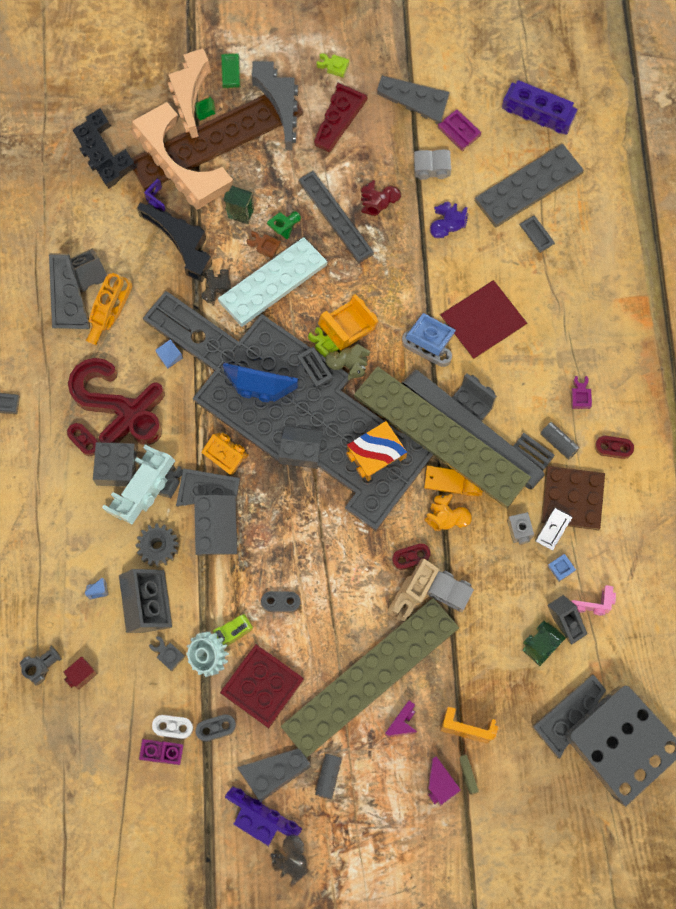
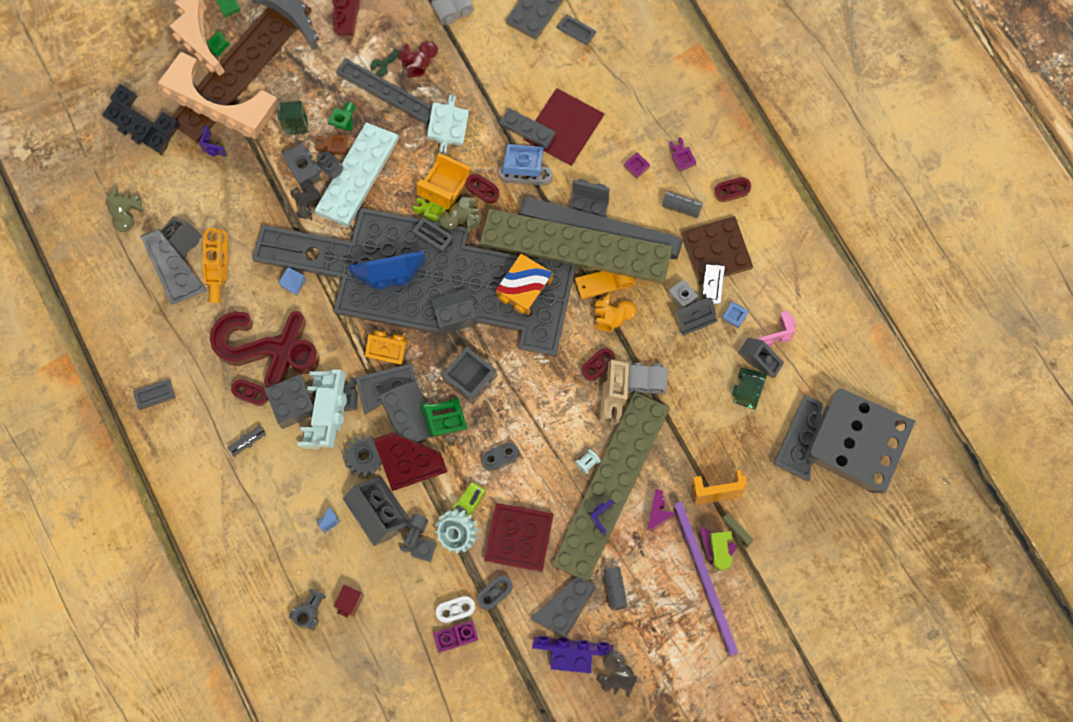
camera: 20 degrees left, 0 degrees up
(48, 220) = (119, 206): none -> olive animal
(59, 482) = (246, 441): none -> dark grey pin
(174, 631) = (416, 526): none -> dark grey piece
(185, 237) = (255, 168): black arch -> none
(193, 568) = (407, 460): none -> dark red plate
(227, 242) = (295, 158): none -> dark grey brick
(245, 548) = (444, 423): none -> green plate
(252, 262) = (330, 165): none -> dark grey plate
(287, 514) = (470, 376): none -> dark grey piece
(345, 190) = (384, 63): none -> clear green bar
(347, 695) = (599, 510): none -> dark purple bracket
(366, 645) = (585, 467): none -> light aqua bush
(376, 270) = (447, 124): none -> light aqua plate
(381, 345) = (484, 188): none -> dark red plate
(416, 808) = (705, 579): none -> medium lavender tile
(439, 795) = (721, 557): none -> lime leg
(448, 306) = (527, 128): none -> dark grey plate
(452, 221) = (495, 51): dark purple animal -> none
(524, 552) = (696, 316): none -> dark grey plate
(534, 385) = (636, 165): none -> magenta plate
(536, 445) = (650, 215): dark grey tile -> none

